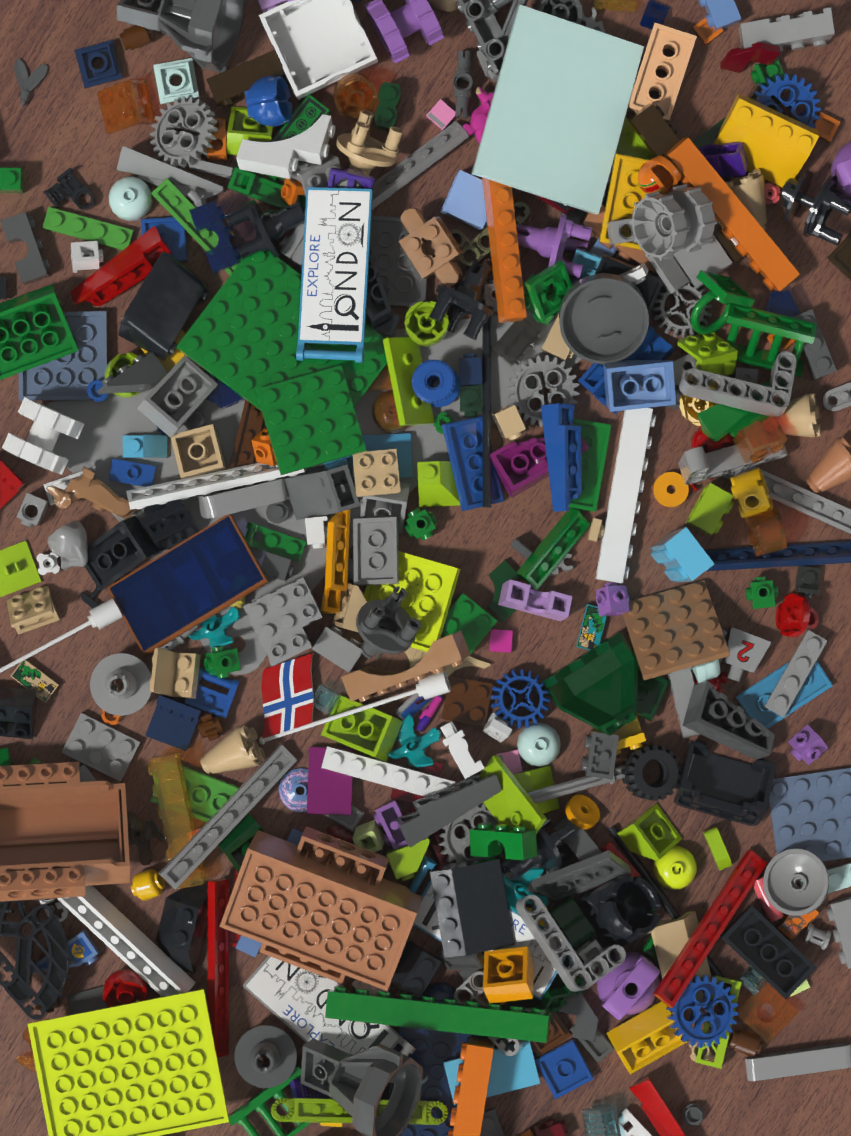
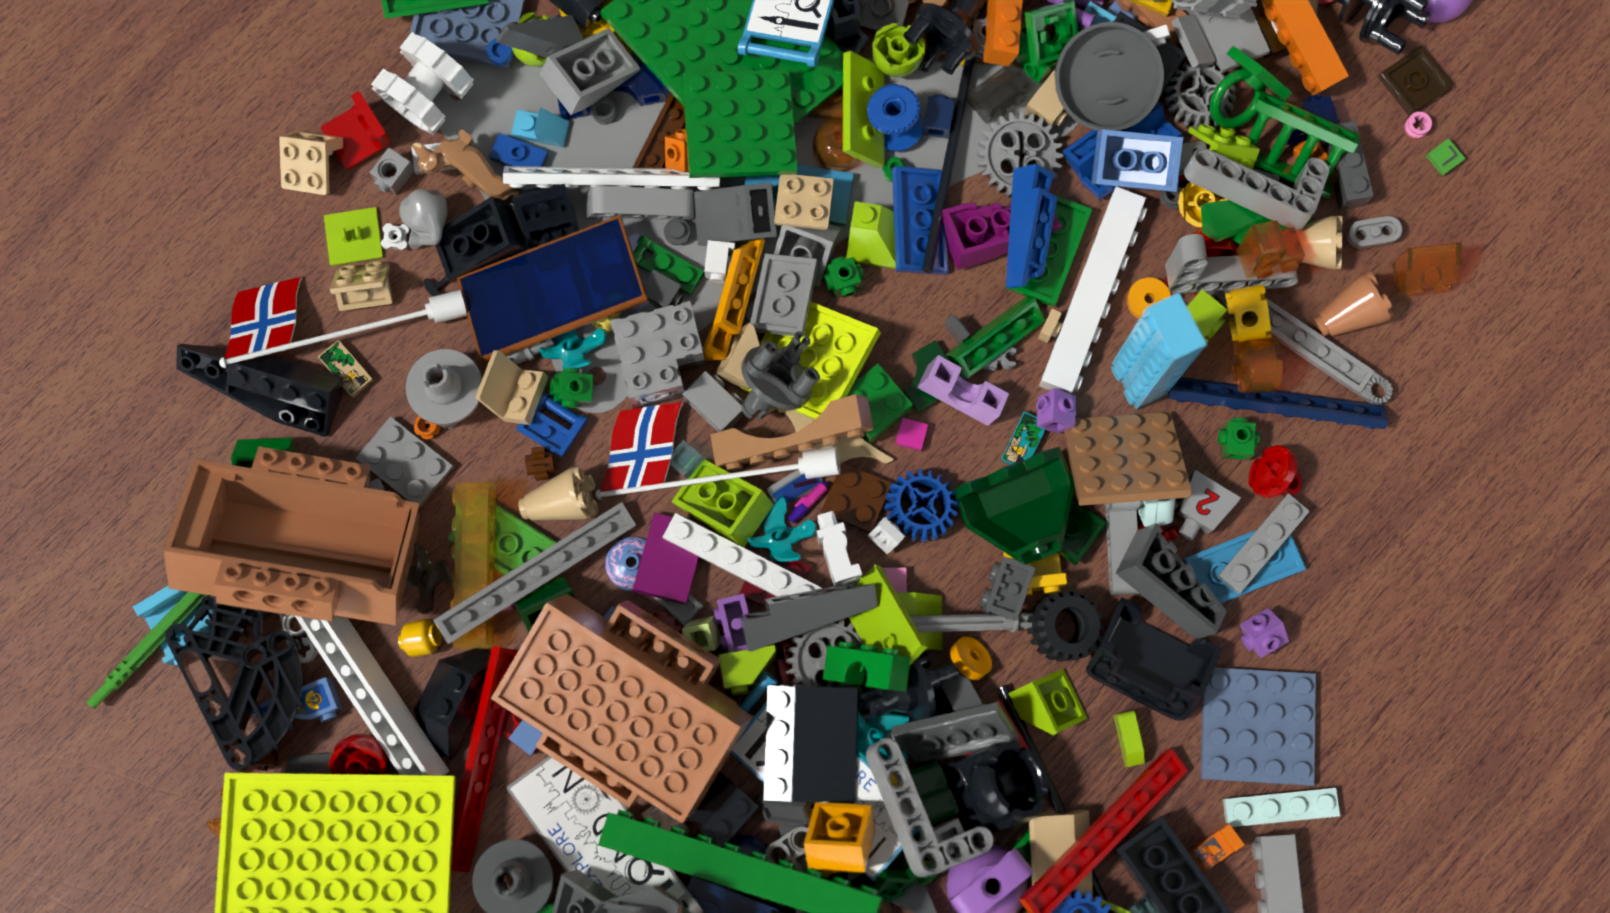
camera: 15 degrees right, 10 degrees down
(173, 722) = (498, 449): dark blue bracket -> none
(198, 451) = (600, 139): tan brick -> none
(470, 400) = (931, 150): clear green bracket -> none
(508, 422) = (972, 178): tan brick -> none
(539, 744) = (933, 567): light aqua cylinder -> none
(678, 858) = (1068, 764): neon yellow cylinder -> none
(770, 912) = (1181, 815): coral piece -> none
(782, 878) = (1219, 780): light grey dish -> none
(807, 581) = (1296, 437): pearl dark grey bracket -> none
(817, 936) = (1245, 877): light grey bush -> none

